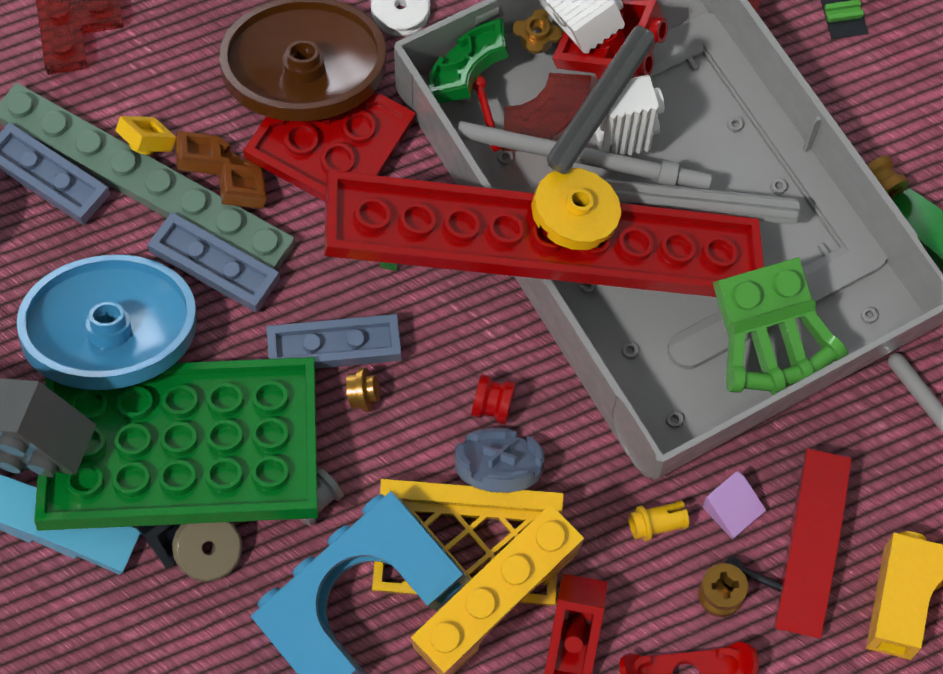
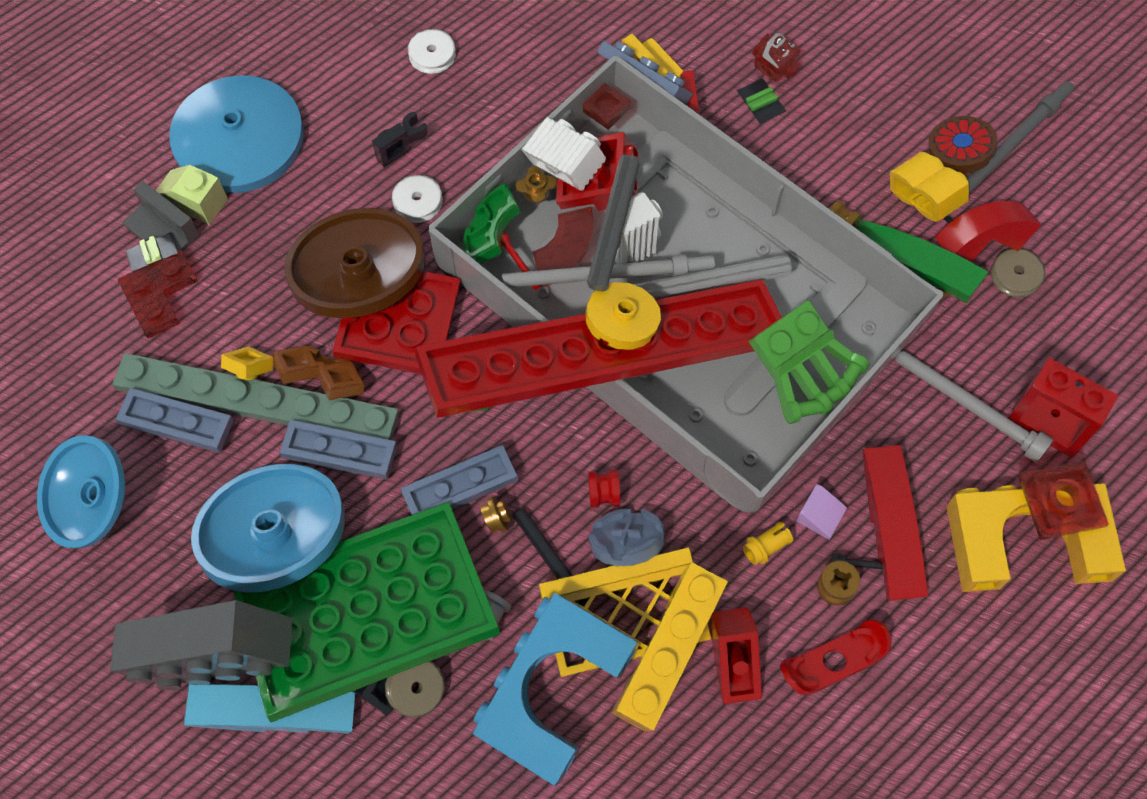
camera: 15 degrees left, 0 degrees up
(403, 440) = (543, 546): none -> black bar

